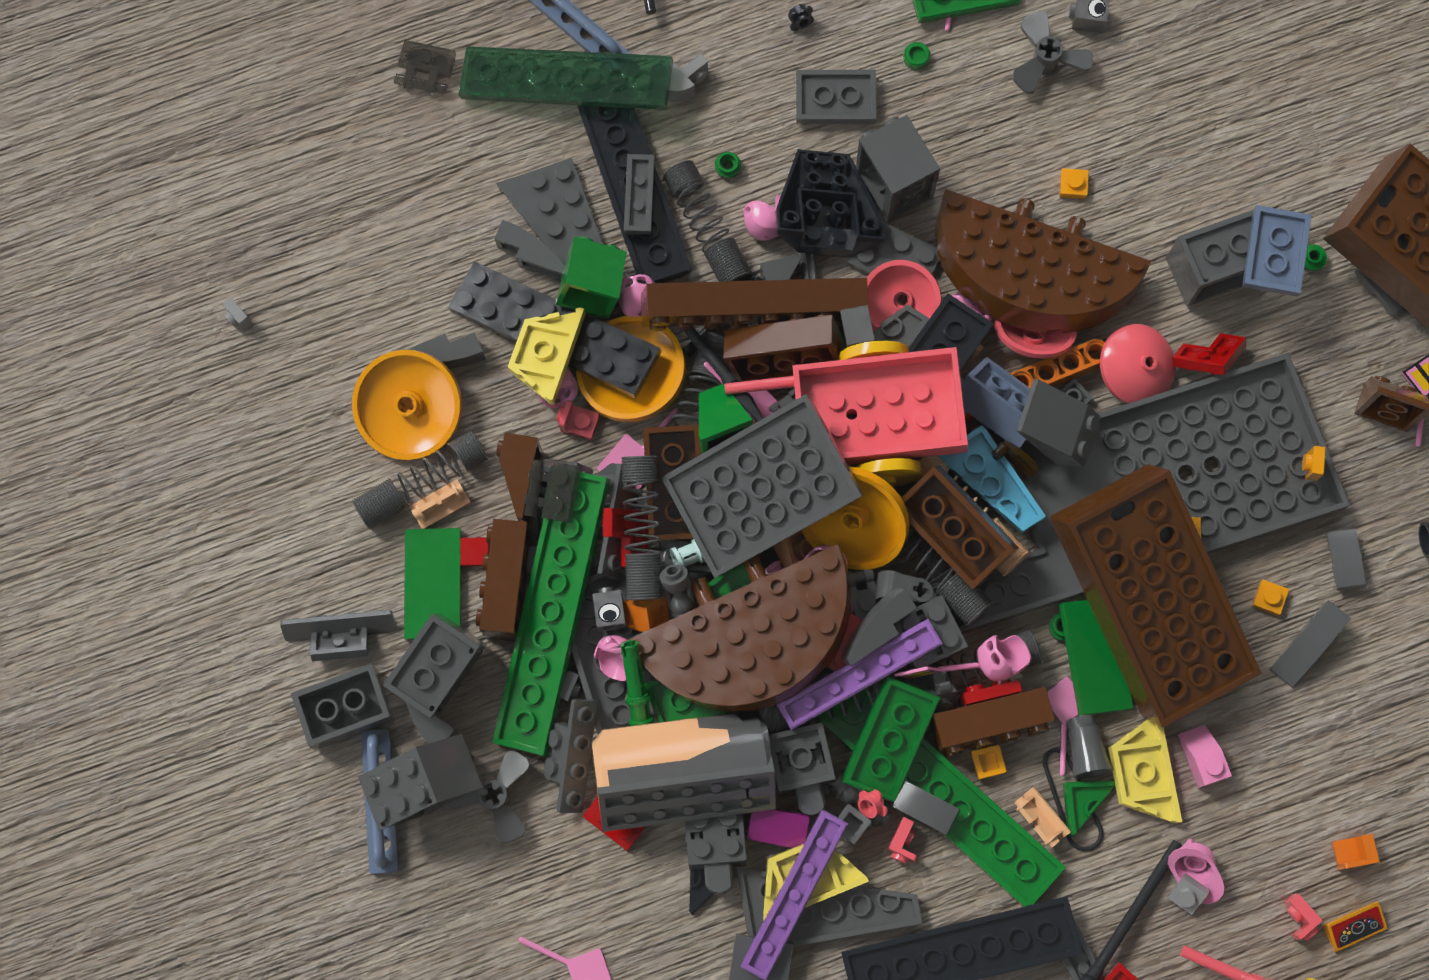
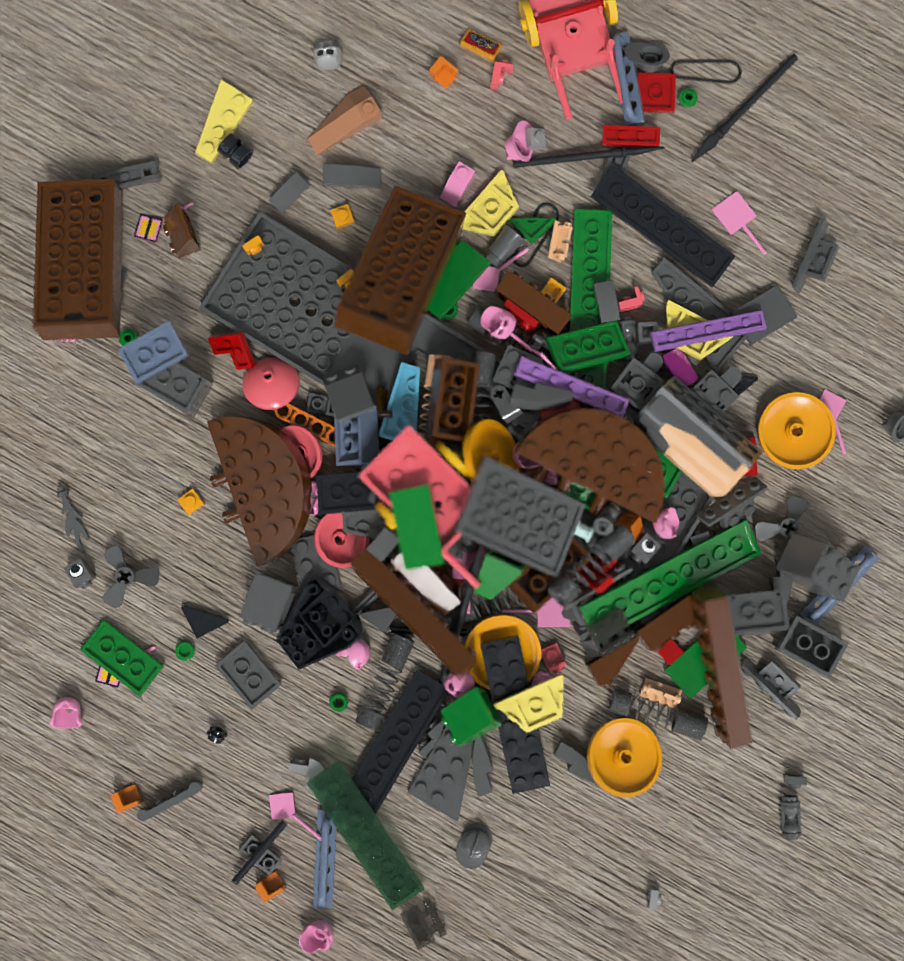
camera: 130 degrees left, 10 degrees up
(196, 538) = (791, 806): none -> dark grey piece
(219, 567) = (795, 781): none -> dark grey plate
(409, 578) = (721, 667): none -> reddish brown brick
(457, 182) = (474, 845): none -> dark grey piece
(593, 901) = (796, 430): none -> light orange dish
(606, 228) = (434, 732): none -> dark grey slope
(637, 695) = (678, 494): green pin -> none
(639, 194) = (400, 733): dark grey plate -> none
(666, 26) = (283, 807): none -> bright pink piece
(846, 363) = (416, 527): none -> green tile
(871, 804) = (629, 329): coral plate -> none
(933, 95) = (202, 622): none -> black tile
(1154, 48) = (71, 522): none -> dark grey piece
(1384, 698) = (349, 117): none -> nougat wedge

